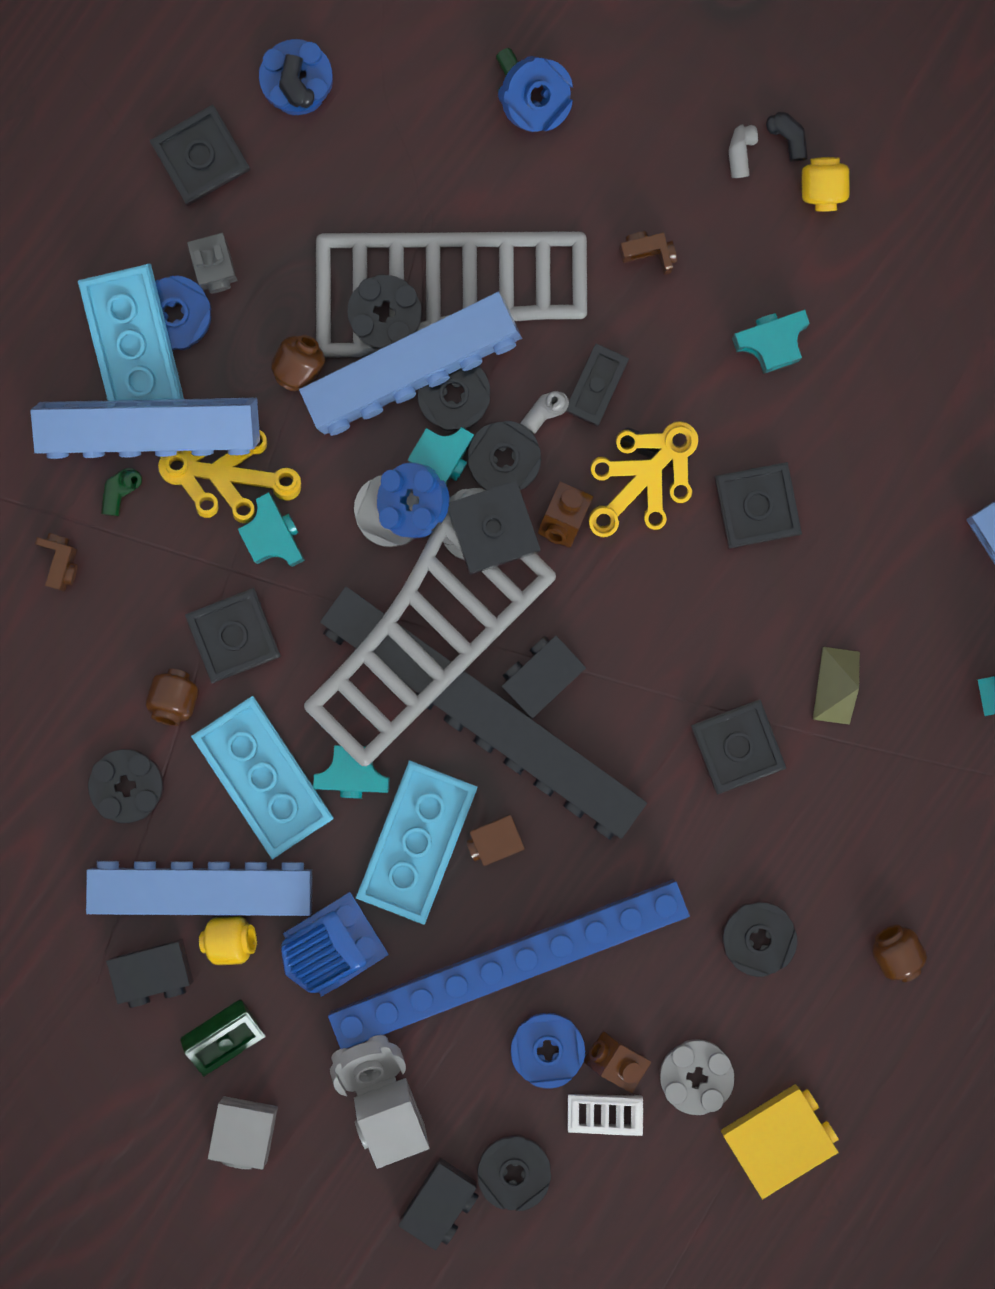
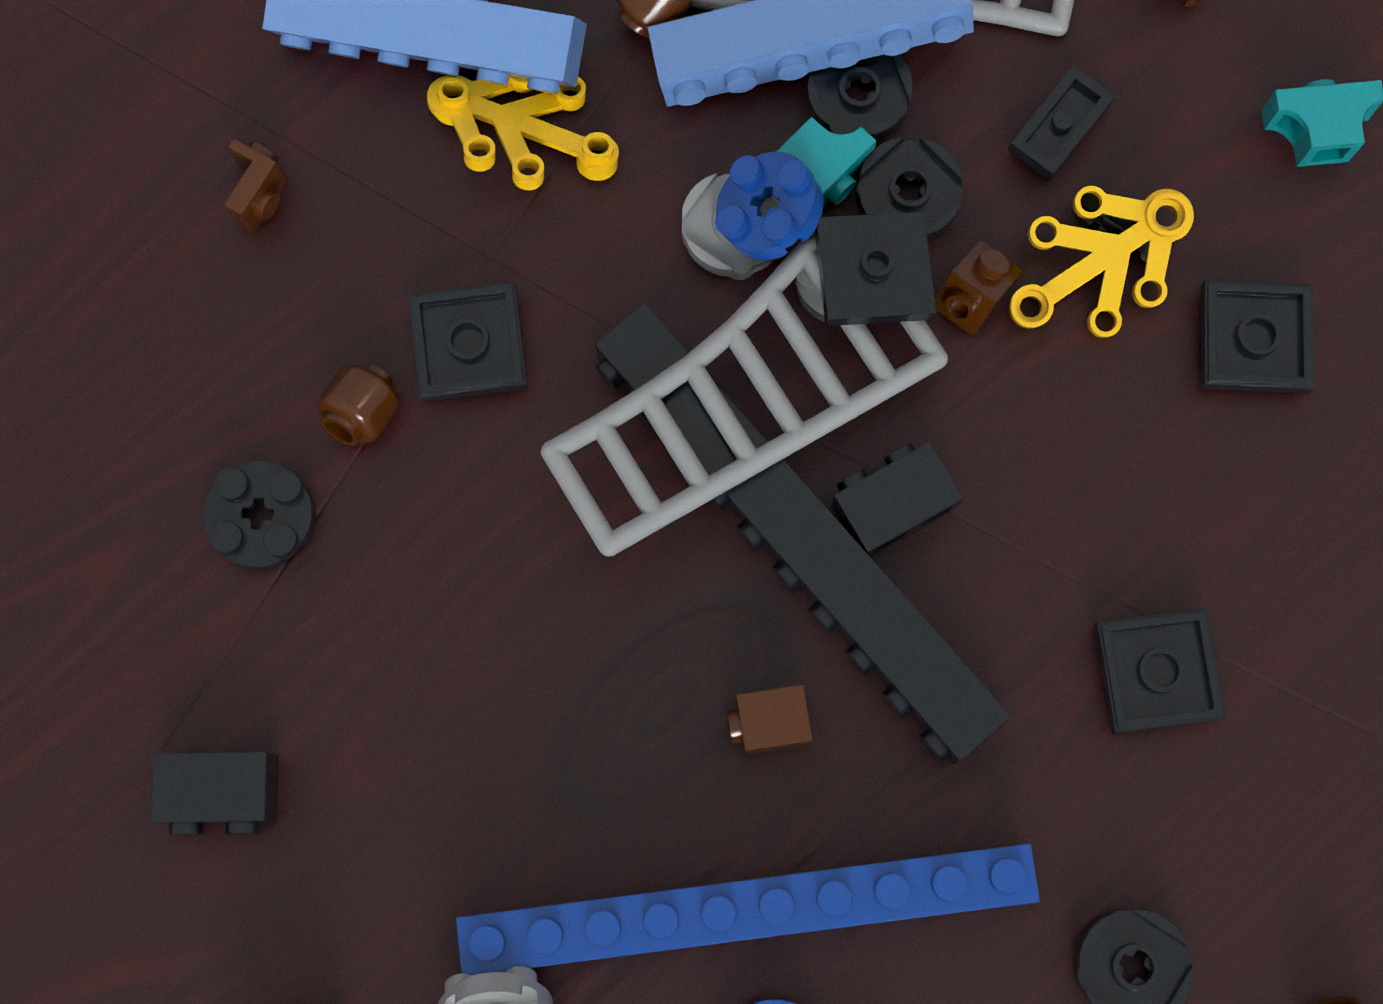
camera: 15 degrees right, 10 degrees down
(118, 487) = (364, 110): dark green arm -> none
(199, 890) = (321, 687): medium blue brick -> none
(221, 1037) = (293, 917): dark green slope -> none
(228, 940) = (341, 771): yellow head -> none
(262, 777) = (457, 551): medium azure tile -> none
(271, 534) = (557, 216): teal brick -> none
(330, 947) = (489, 819): blue piece -> none
(350, 777) = (582, 575): teal brick -> none
(416, 842) = (654, 697): medium azure tile -> none
(546, 407) = (985, 137): light grey arm -> none
(837, 685) = (1322, 620): olive slope -> none

